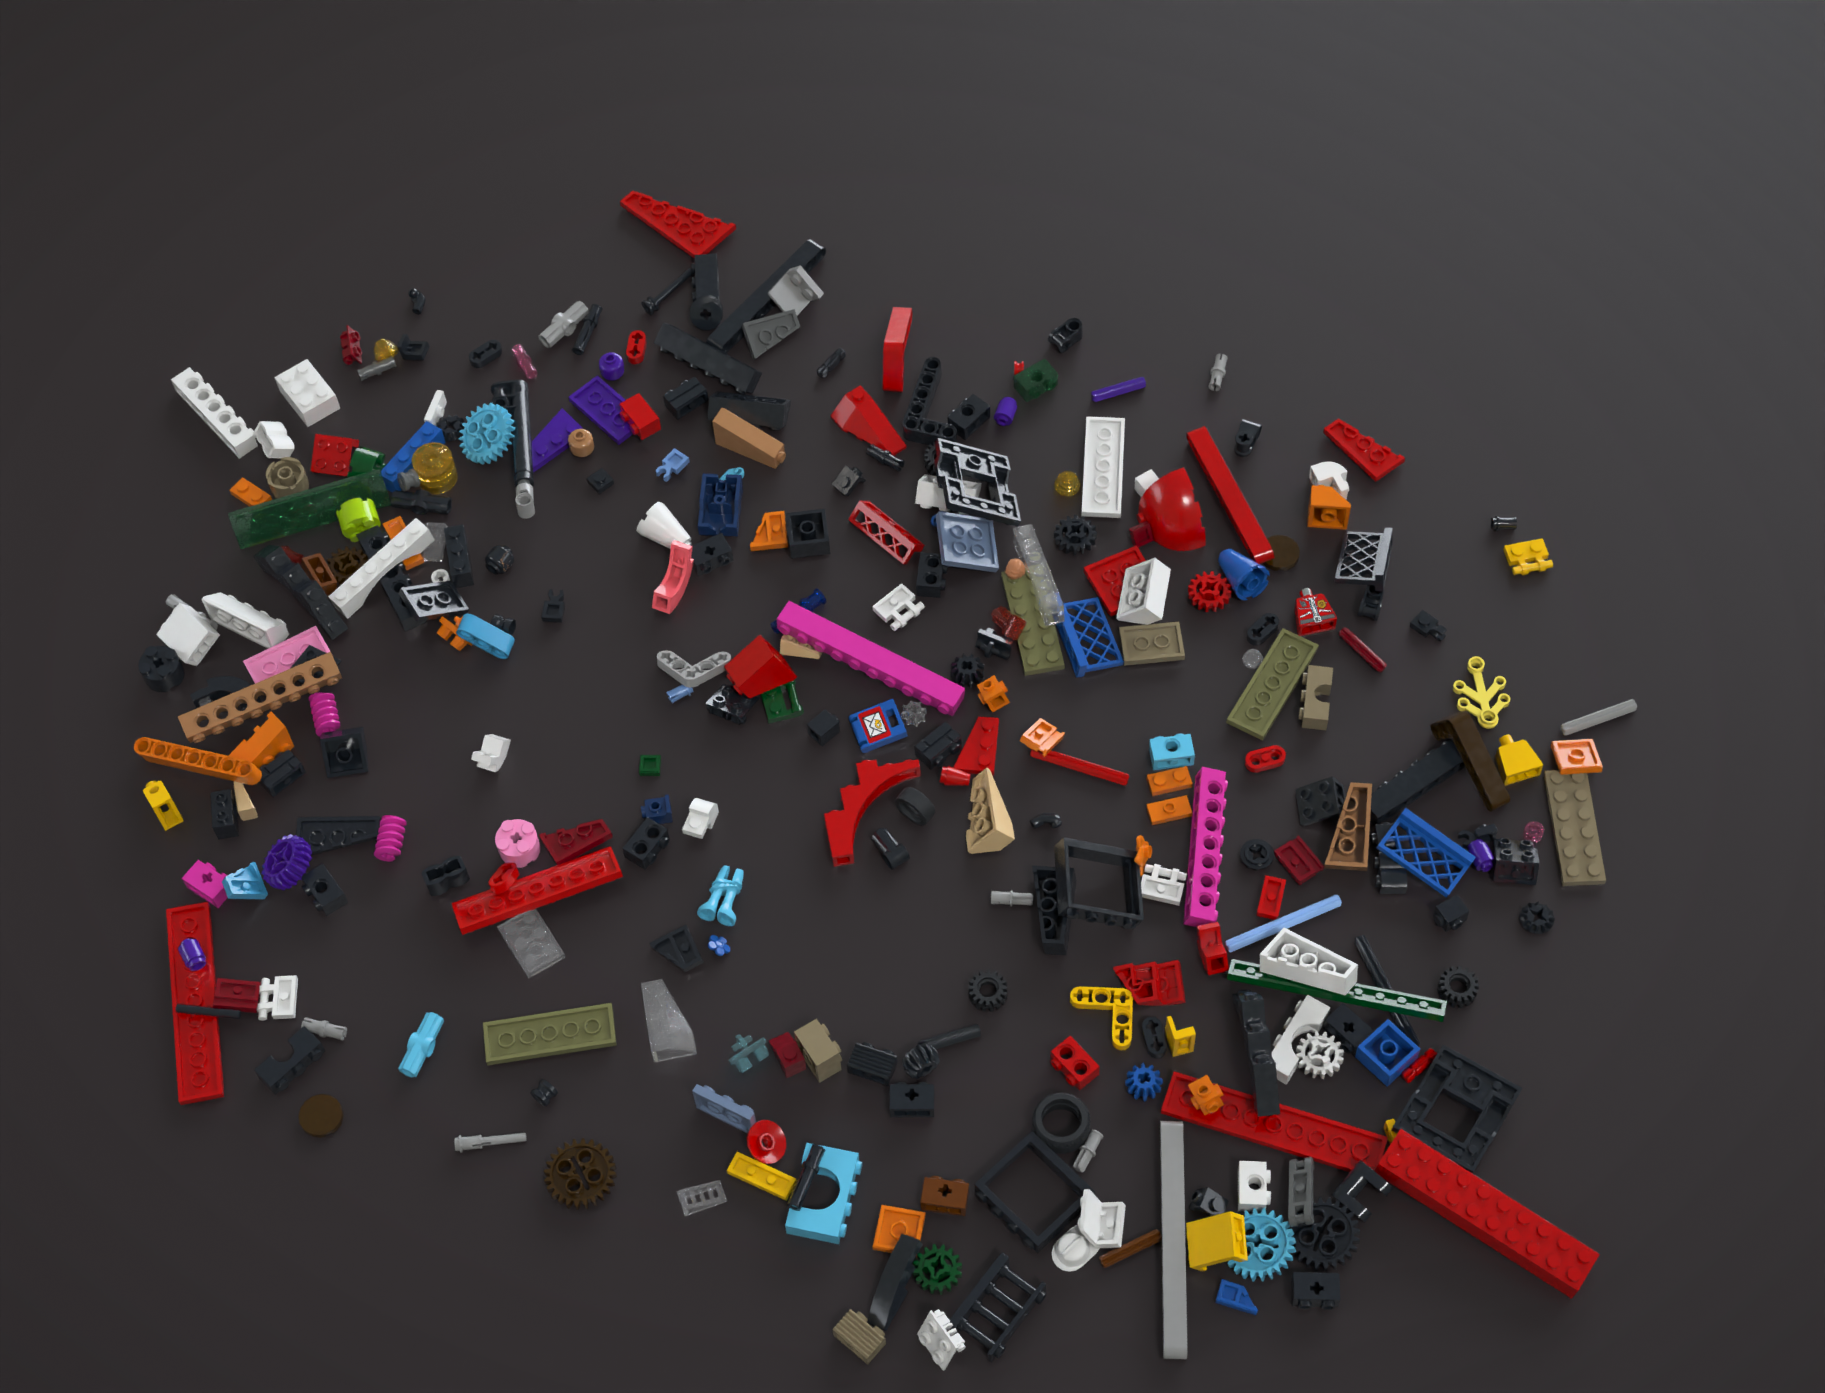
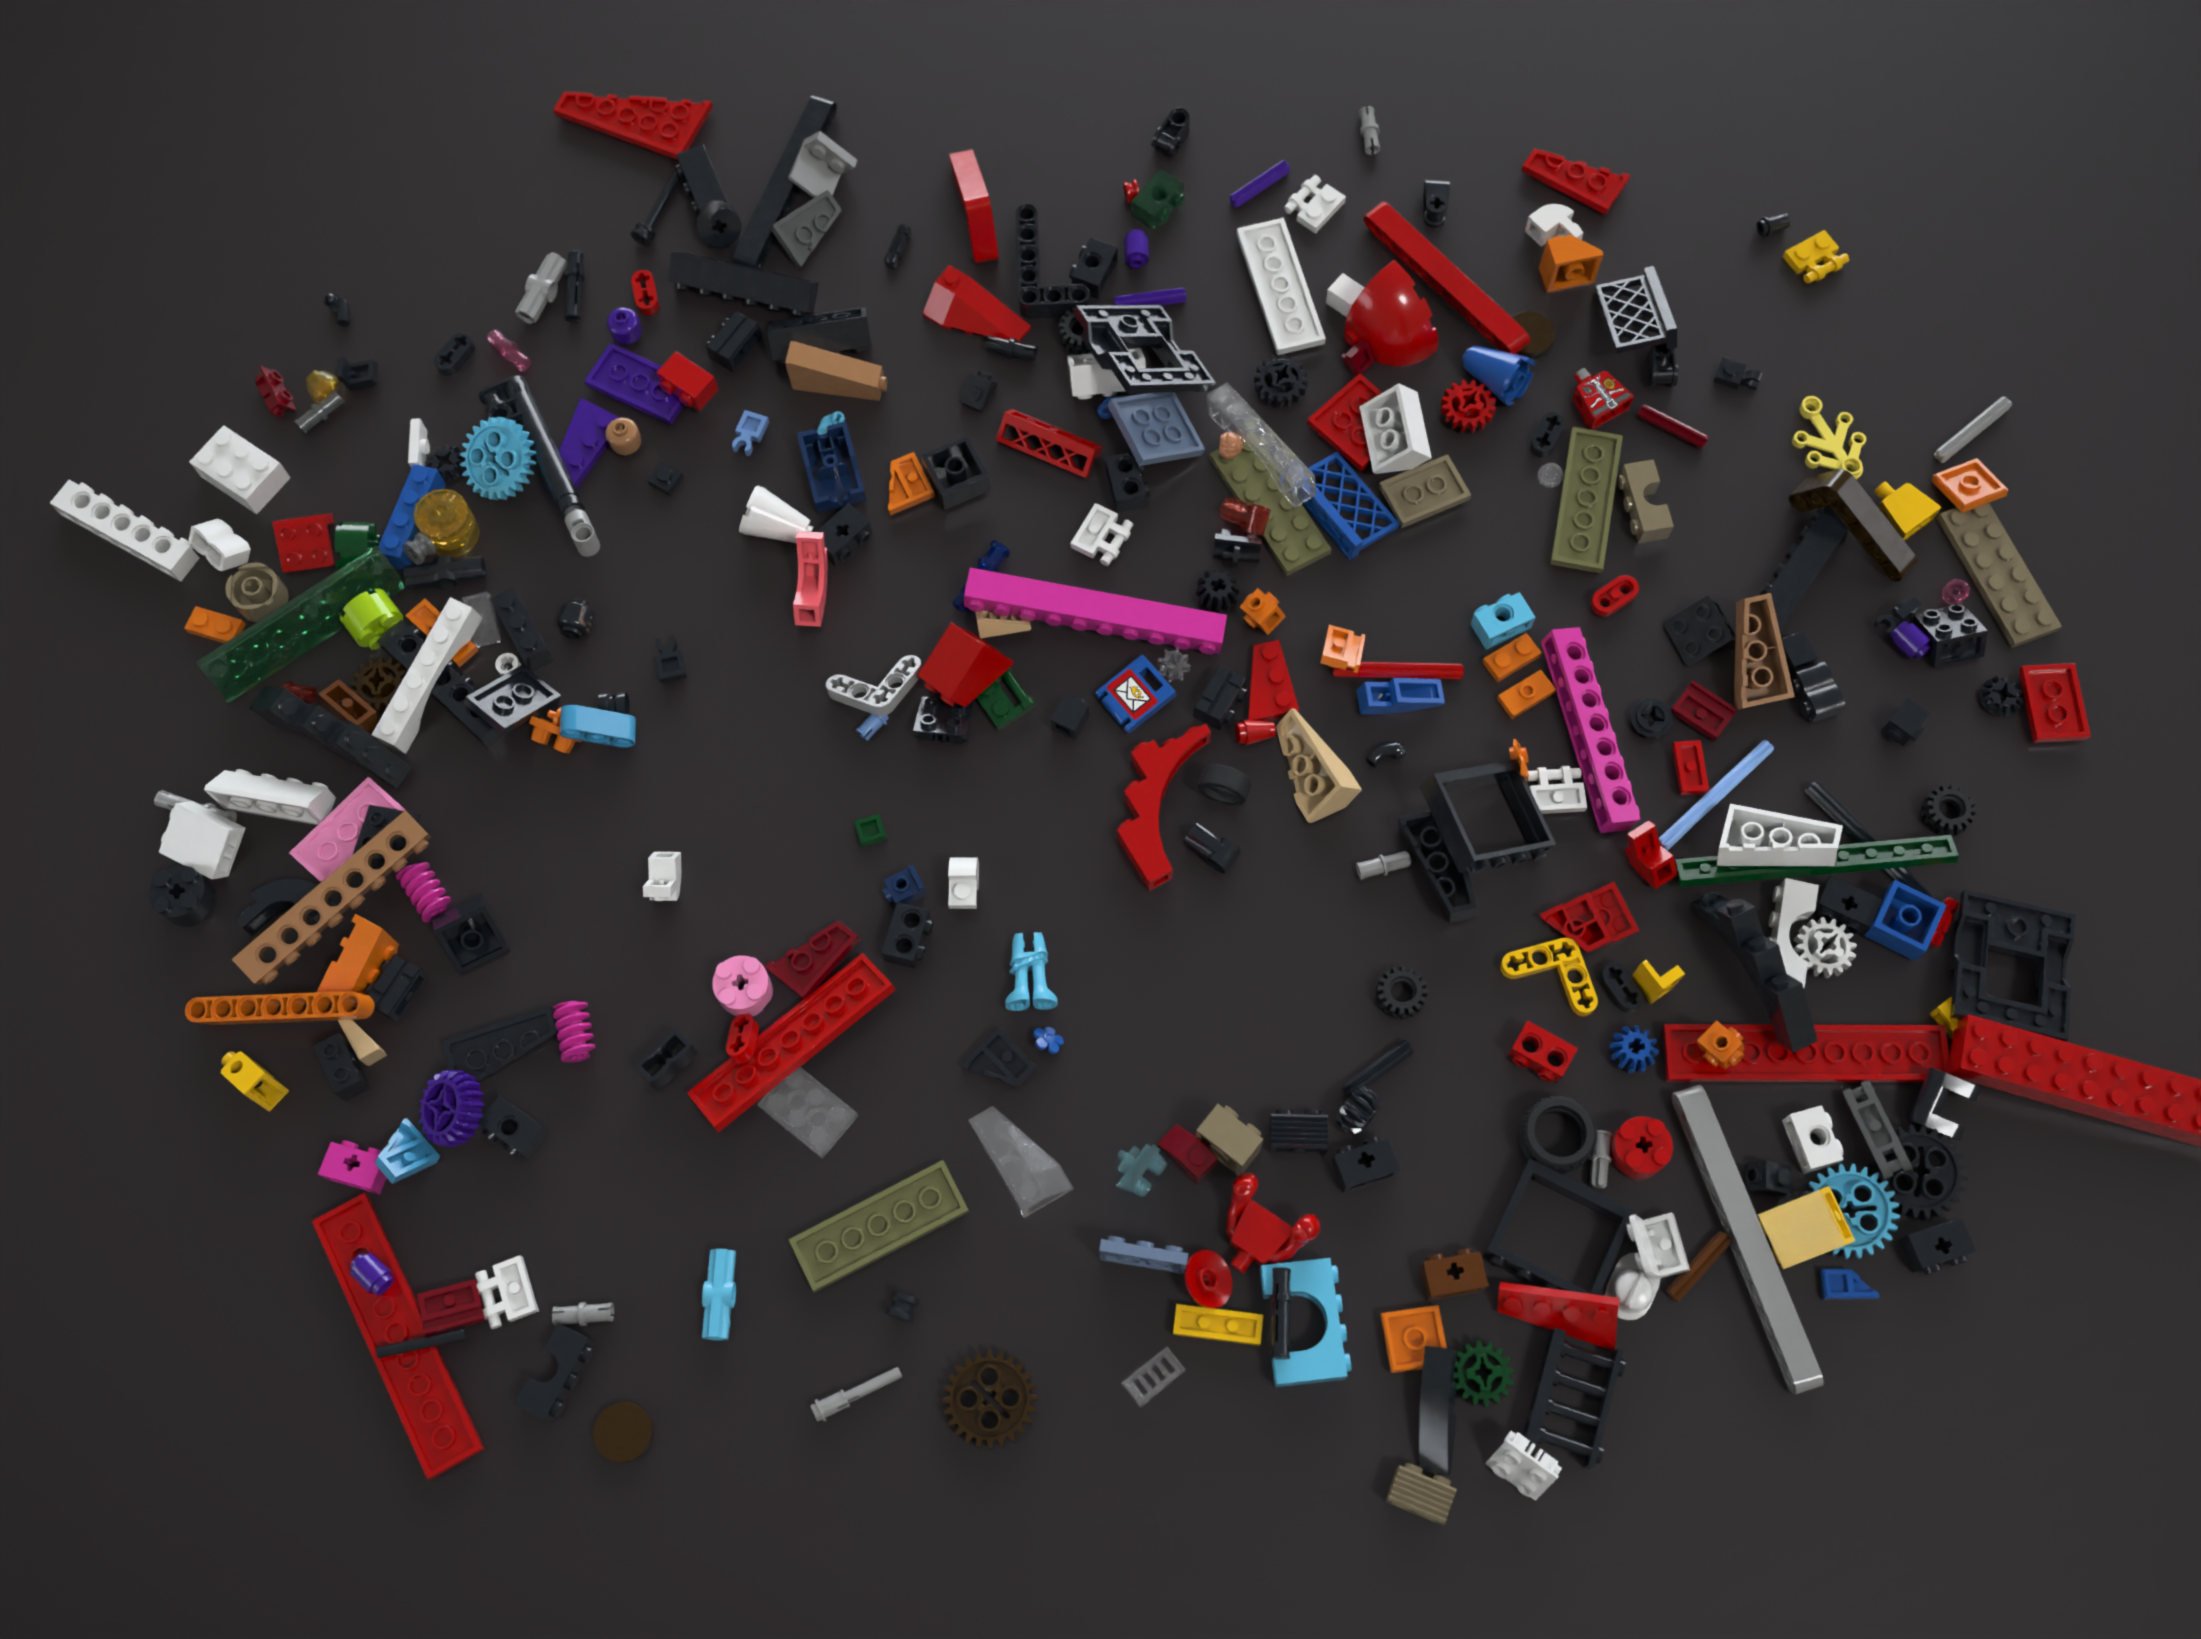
camera: 20 degrees left, 10 degrees up
(815, 1122) = (1259, 1233): none -> red torso
(1006, 450) = (1160, 297): none -> dark purple axle
(1025, 1250) = (1579, 1314): none -> red wing
(1067, 483) = (1245, 319): clear yellow cone -> none
(1072, 783) = (1399, 695): none -> blue slope
(1116, 1139) = (1649, 1134): none -> red brick
(1158, 418) = (1319, 209): none -> white plate
(1434, 842) = (1853, 640): blue fence -> none
(1575, 934) = (2054, 703): none -> red plate

